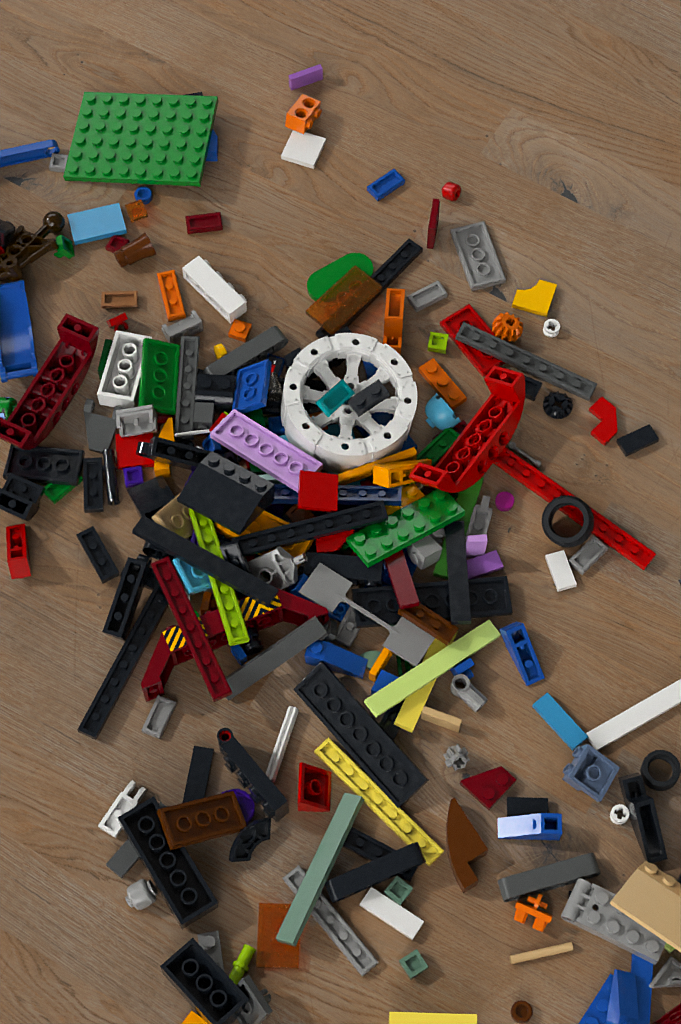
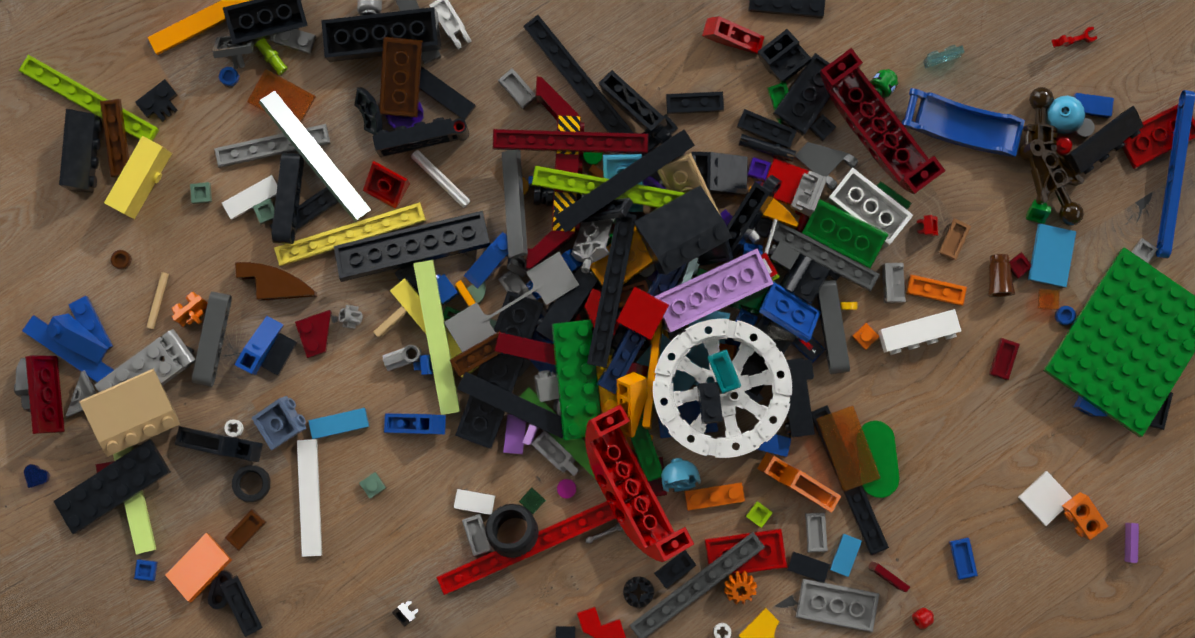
camera: 115 degrees right, 20 degrees up
(69, 441) = (822, 127): none -> black tile
(281, 1001) = (229, 76): none -> blue tile
(433, 267) = (845, 555): none -> dark azure tile
(459, 289) = (808, 567): none -> black tile
(531, 524) = (532, 500): none -> clear green tile
(597, 664) = (372, 485): none -> sand green plate

